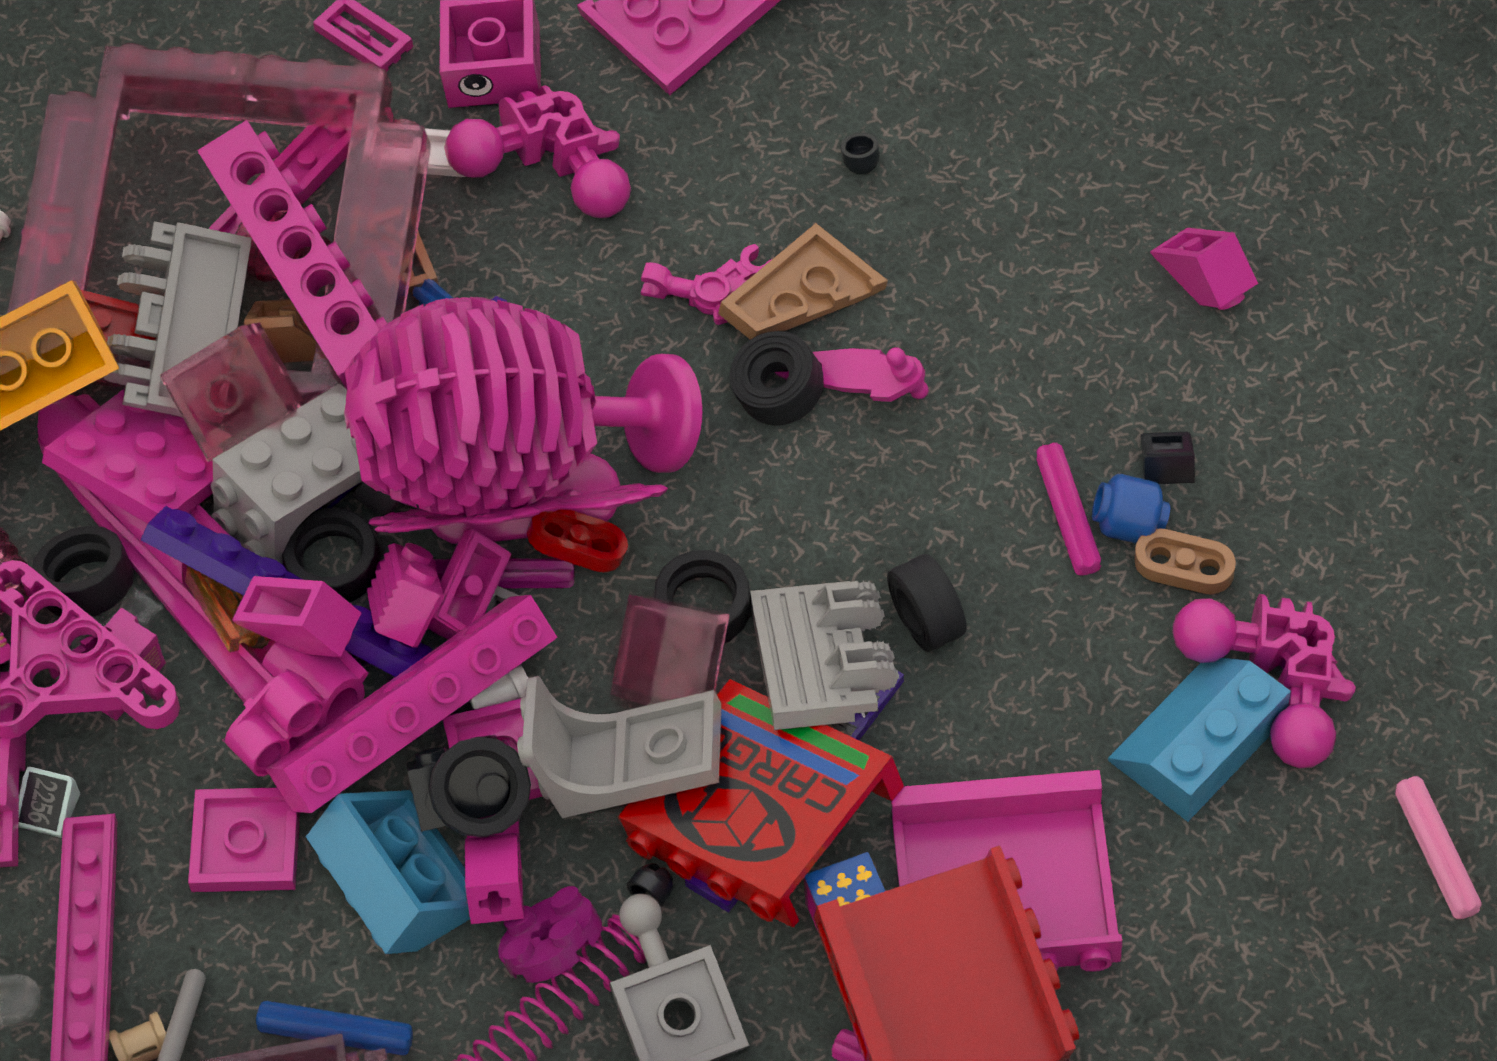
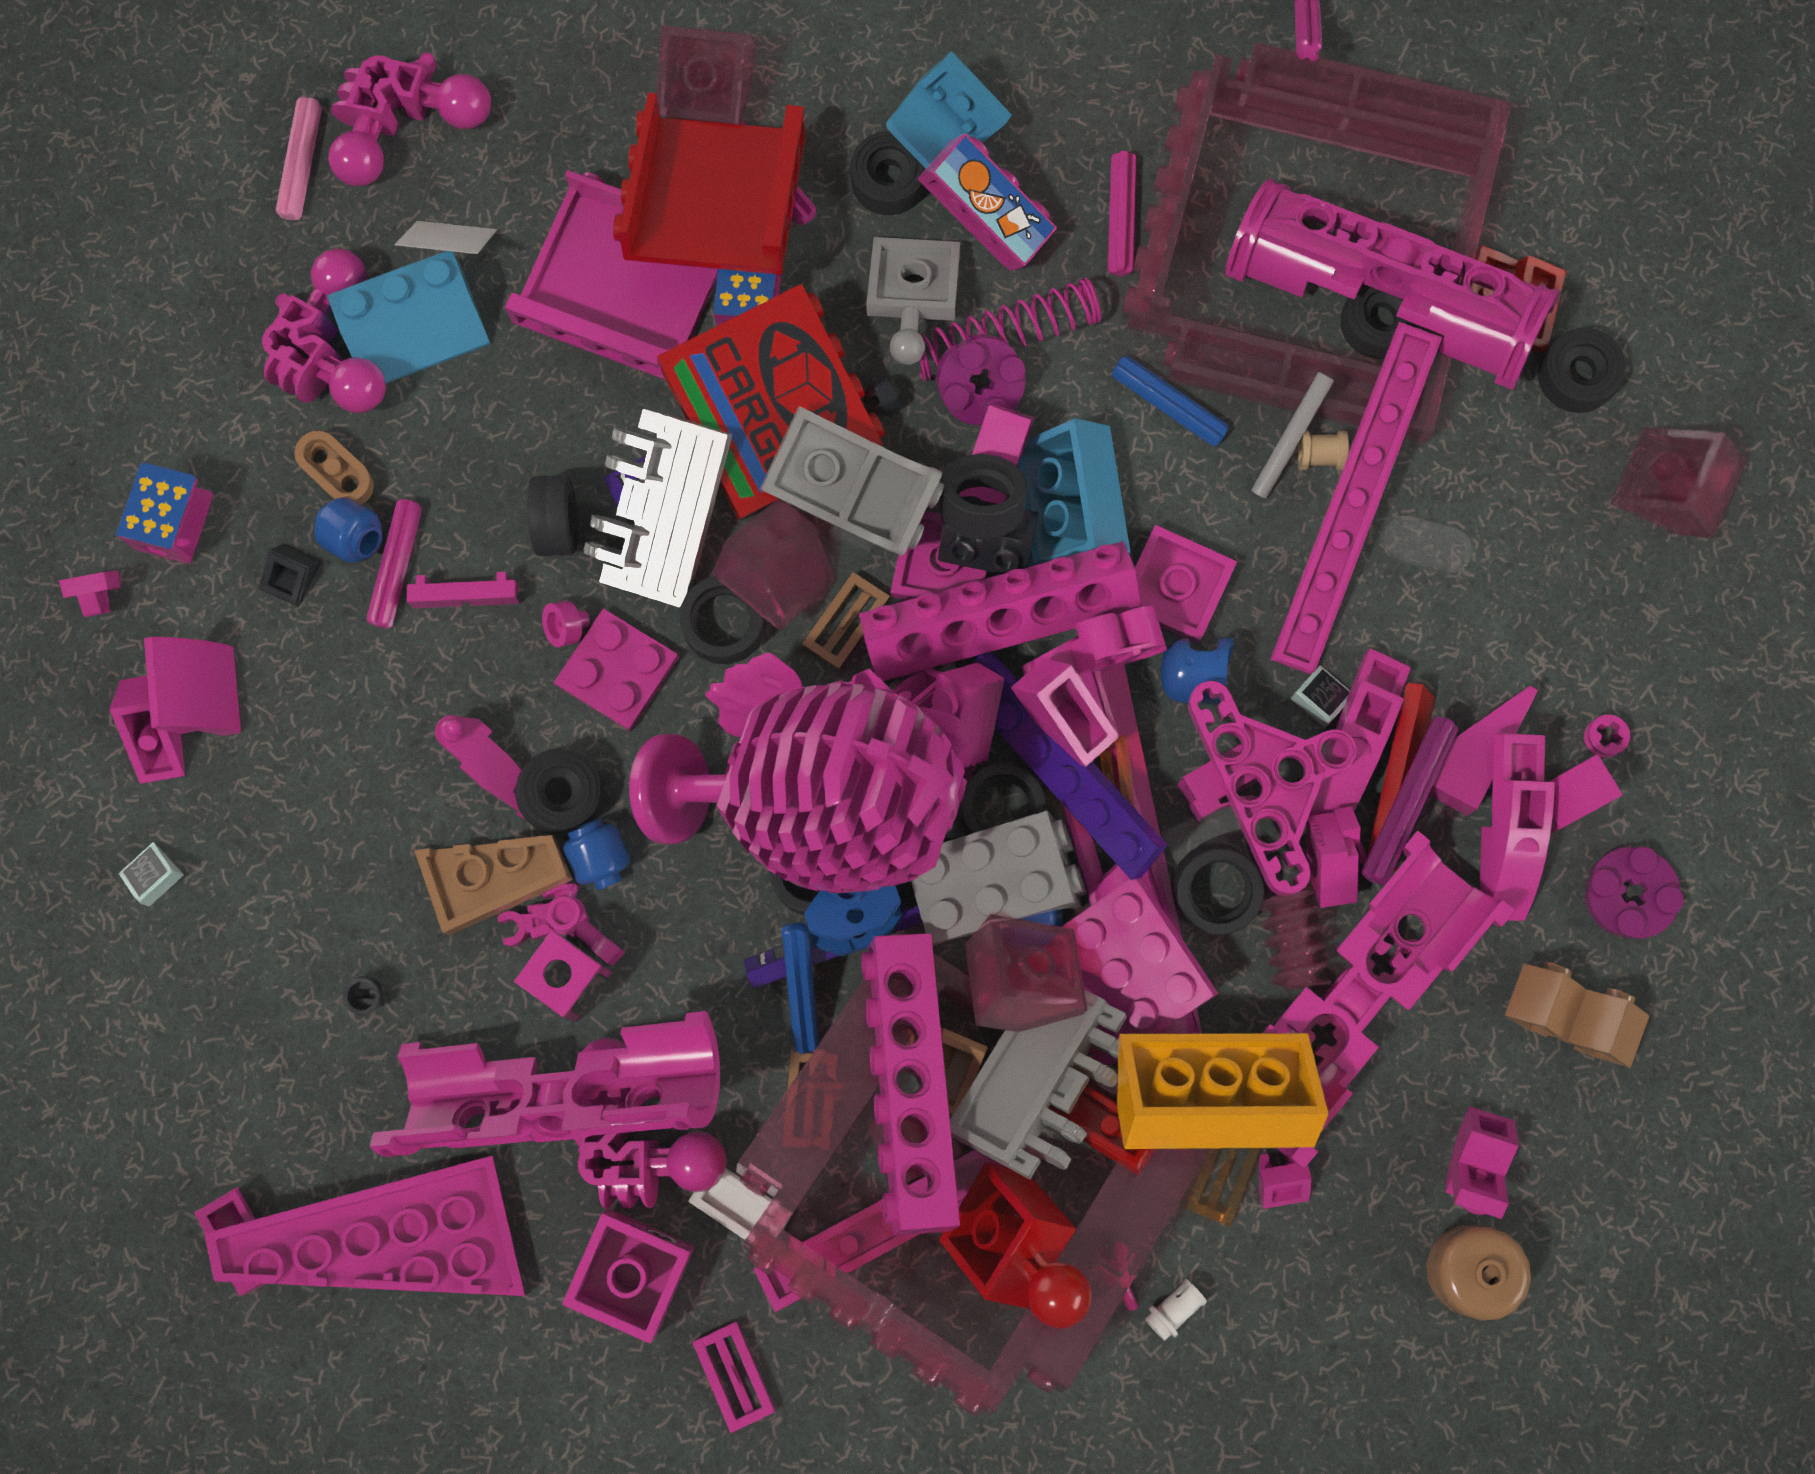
camera: 155 degrees left, 20 degrees up
(143, 183) = (1011, 1248): none -> red brick
(179, 740) = (1185, 669): none -> blue helmet
(585, 618) = (824, 653): none -> medium nougat tile
(674, 225) = (582, 972): none -> dark pink piece
(709, 345) = (596, 854): none -> blue head
(716, 66) = (457, 1083): none -> dark pink piece
(786, 515) = (616, 669): none -> dark pink plate
(860, 525) = (564, 623): none -> dark pink tile
(992, 502) = (430, 595): none -> dark pink piece
(1122, 159) = (150, 875): none -> slope
(1180, 301) = (192, 686): none -> dark pink slope
(1212, 820) = (446, 237): none -> white sticker
(1318, 437) = (164, 513): none -> piece
(1347, 350) = (91, 591): none -> dark pink tile
(1367, 865) = (384, 86): none -> dark pink piece

